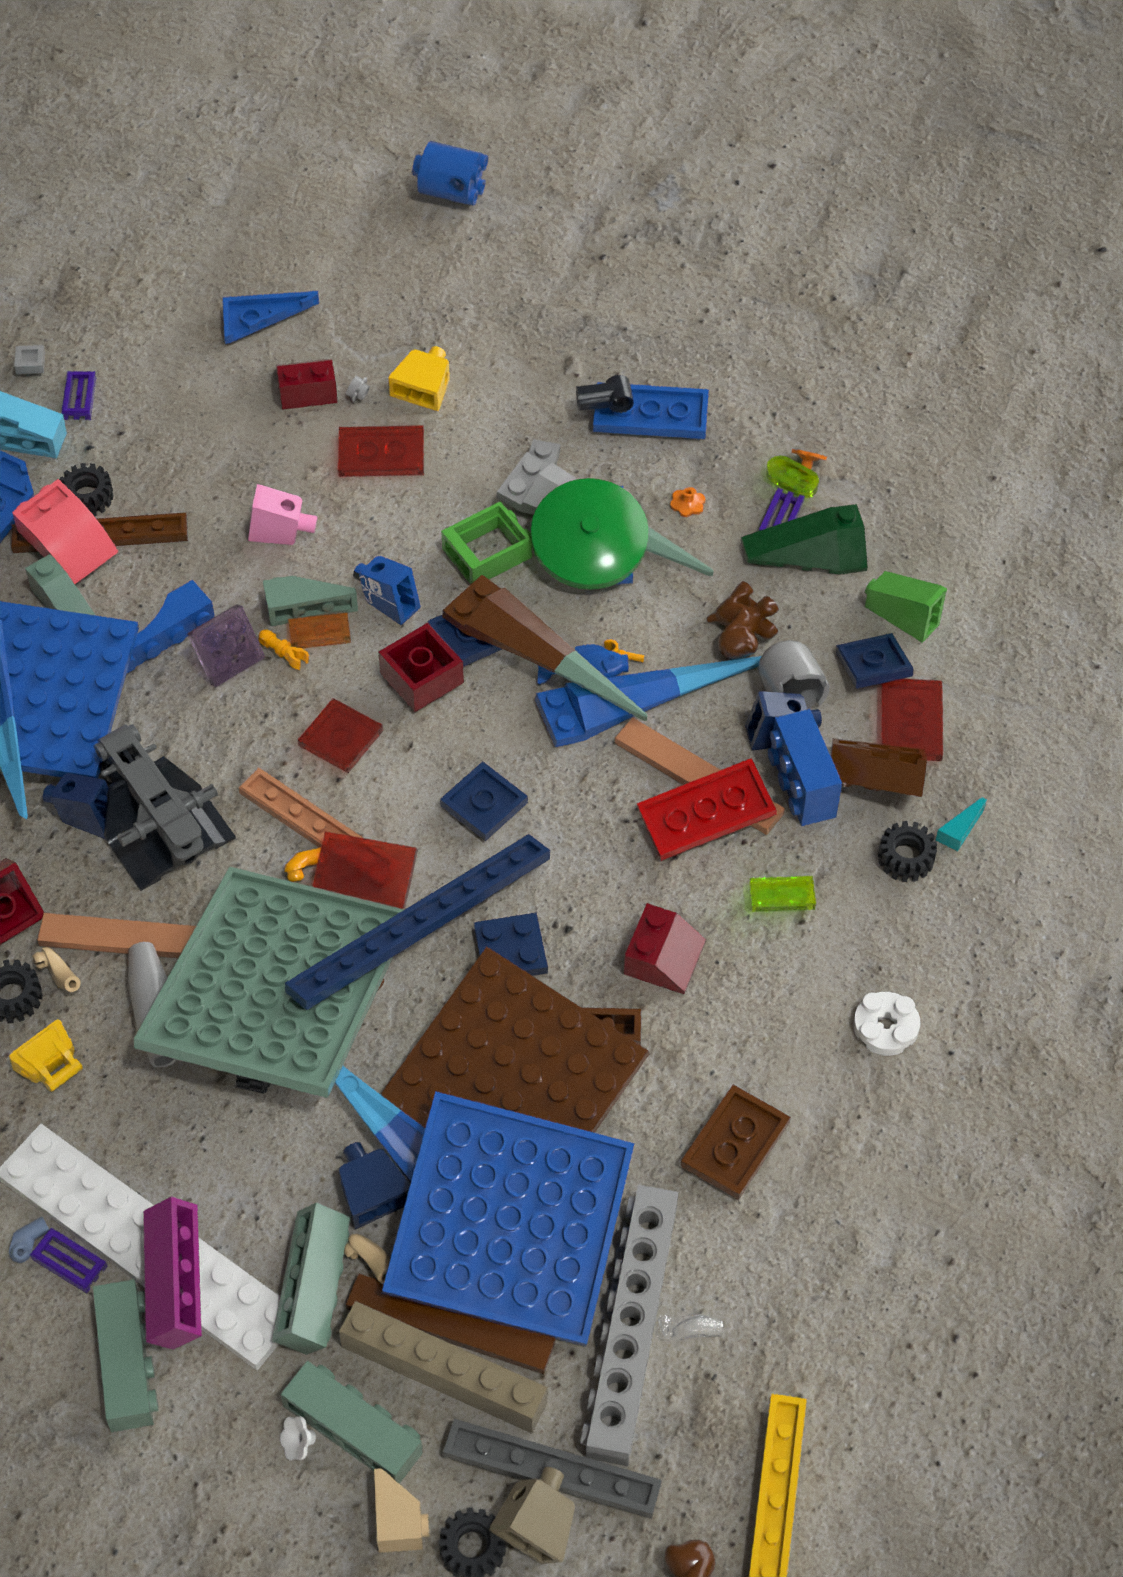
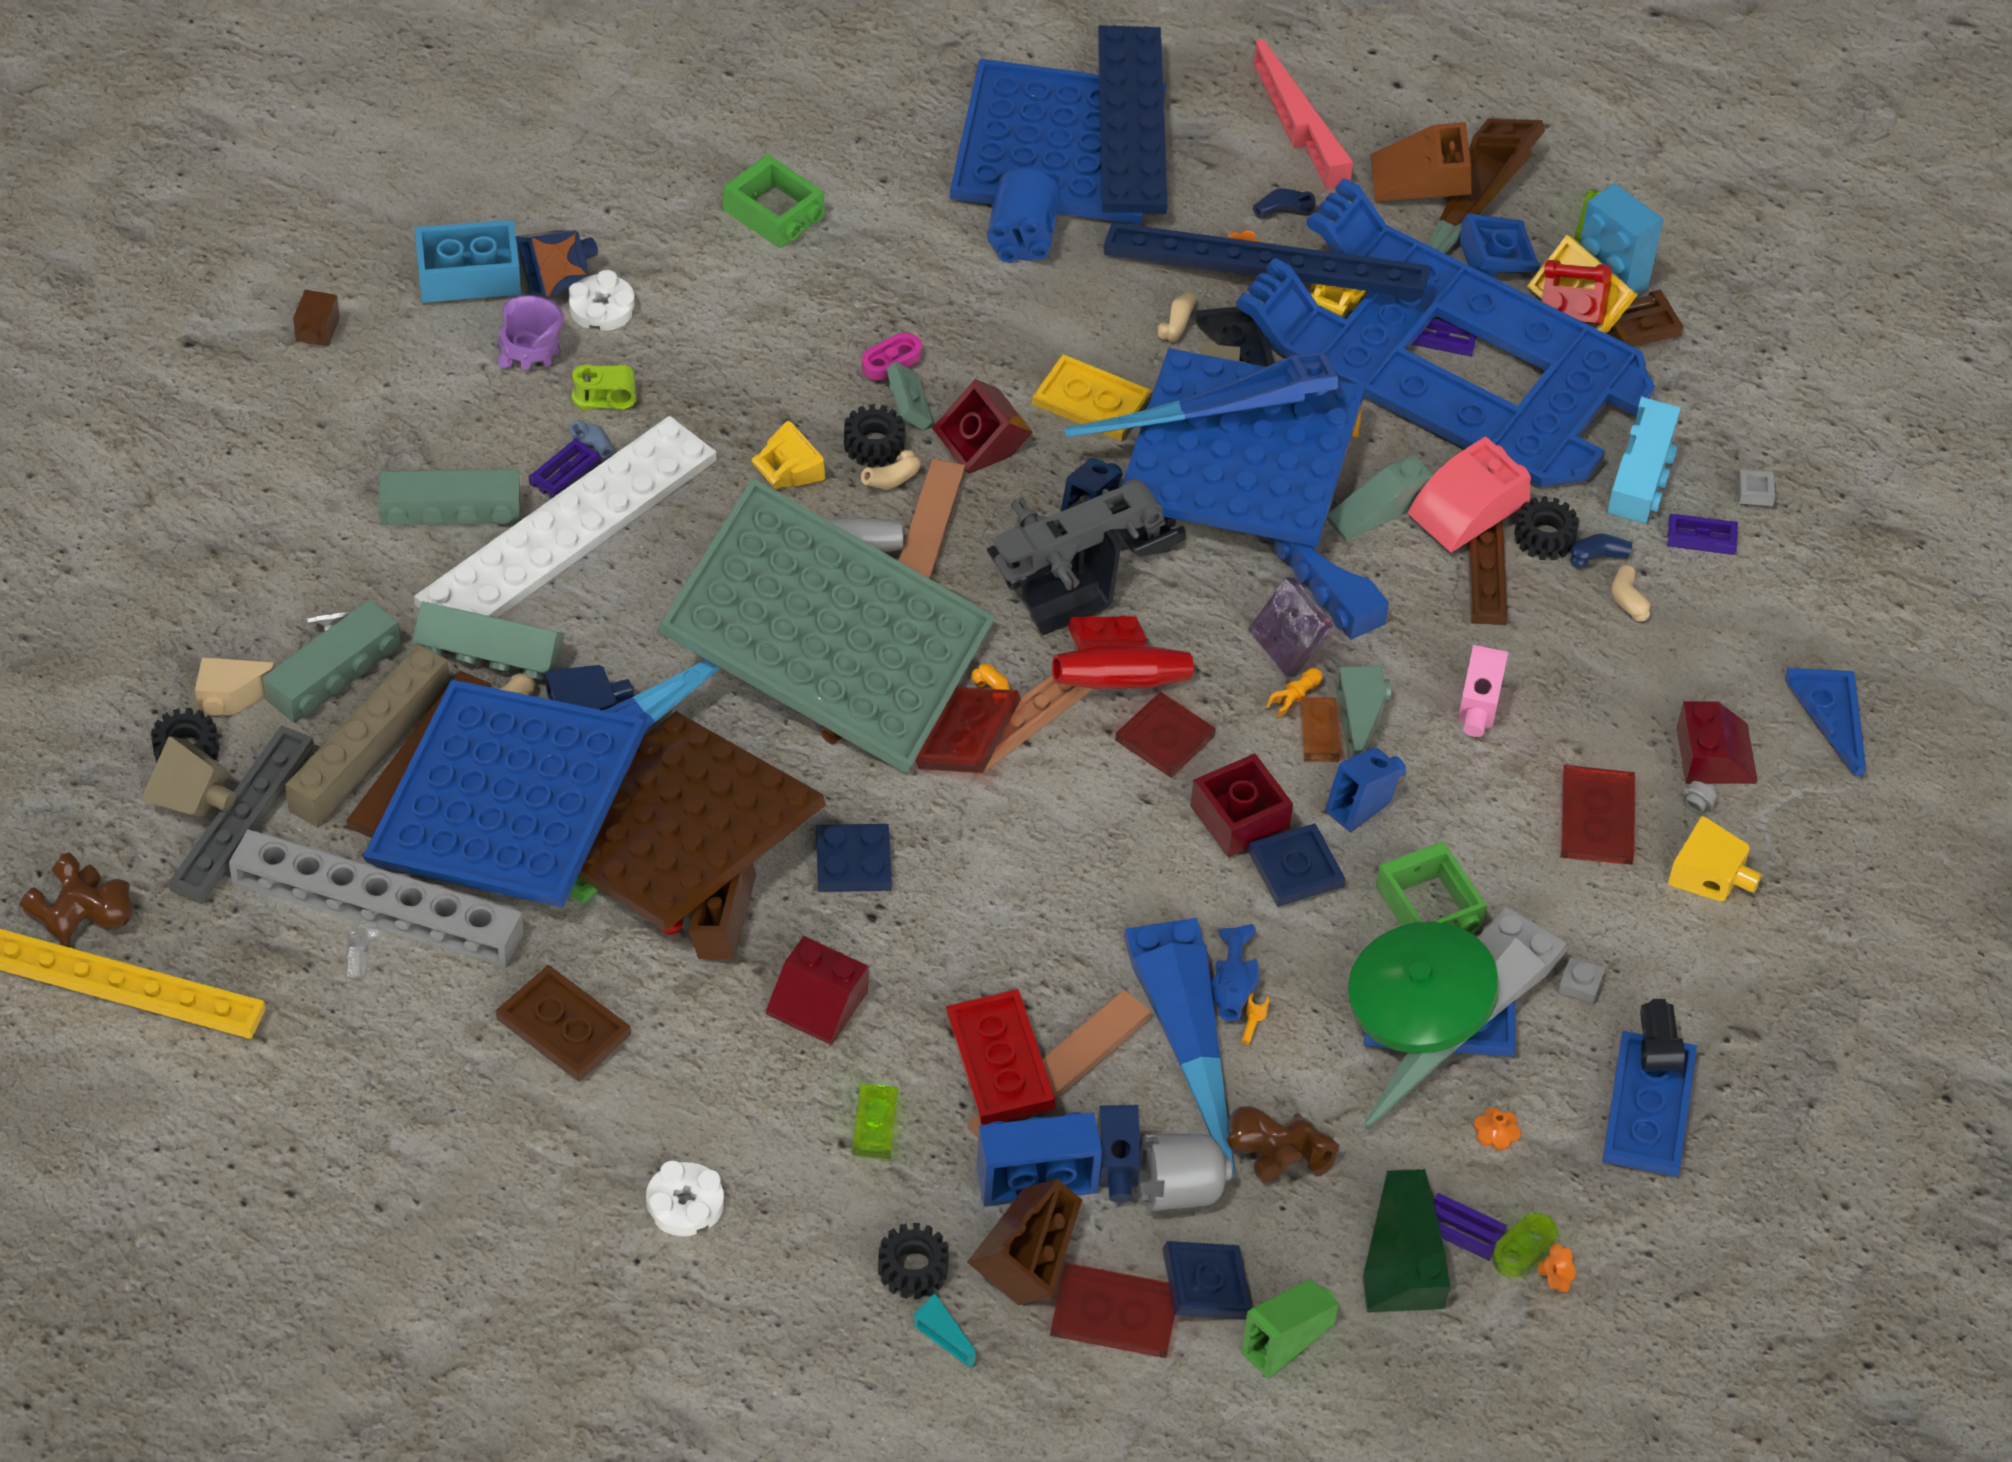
camera: 95 degrees right, 5 degrees down
(102, 457) = (1598, 546): none -> dark blue arm
(152, 438) = (1628, 596): none -> tan arm
(172, 1273) = (511, 520): magenta brick -> none
(276, 764) = (1116, 657): none -> red plate
(416, 922) = (882, 757): dark blue plate -> none
(484, 801) = (1051, 852): dark blue plate -> none
(507, 623) = (1291, 889): reddish brown plate -> none

